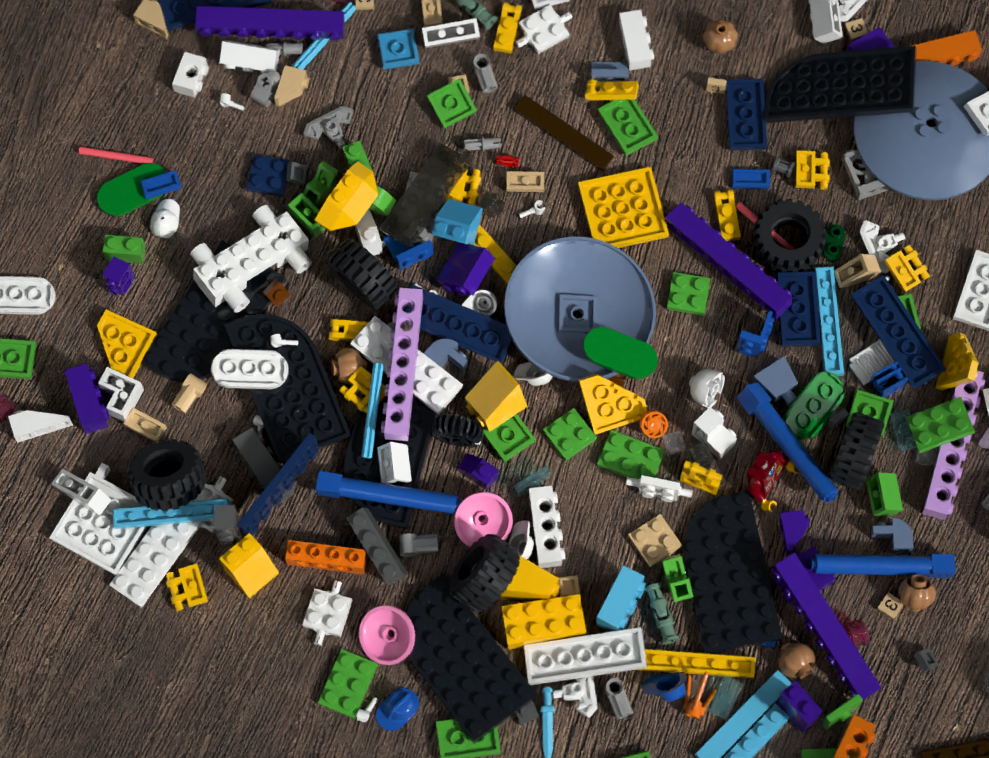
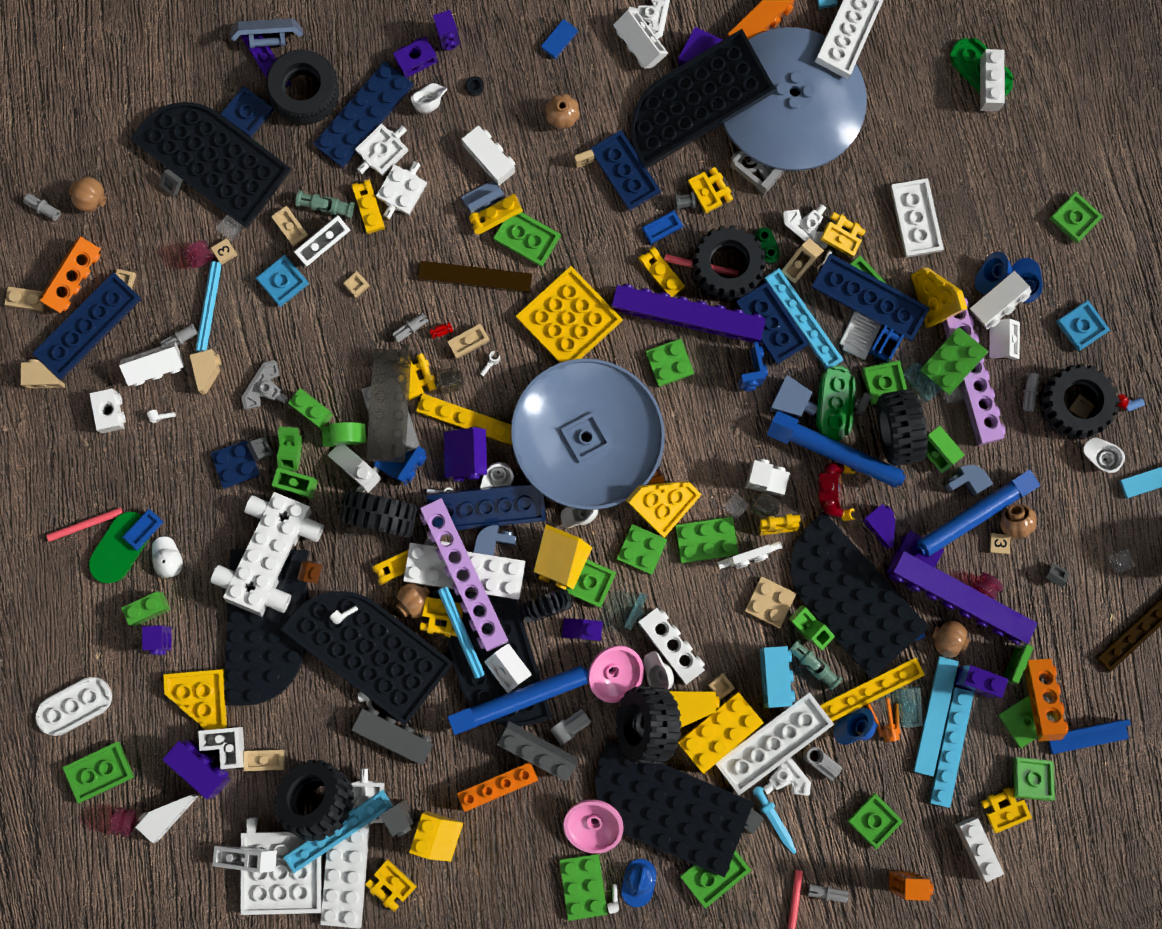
camera: 35 degrees left, 10 degrees up
(191, 389) = (285, 702): tan piece -> none
(249, 369) = (328, 657): white tile -> none
(265, 87) = (184, 384): light grey piece -> none
(270, 22) = (151, 322): dark purple brick -> none
(281, 482) = (421, 763): dark blue plate -> none
(327, 612) = (527, 834): white plate -> none
(349, 199) = (325, 449): yellow wedge -> none
(452, 103) = (361, 305): bright green plate -> none
(457, 222) = (432, 414): dark azure slope -> none
(484, 74) = (374, 262): light grey piece -> none
(620, 353) = (647, 454): green tile -> none
(653, 424) = (709, 499): orange wheel -> none
(705, 386) = (735, 440): white cylinder -> none
(856, 29) = (674, 39): tan tile -> none

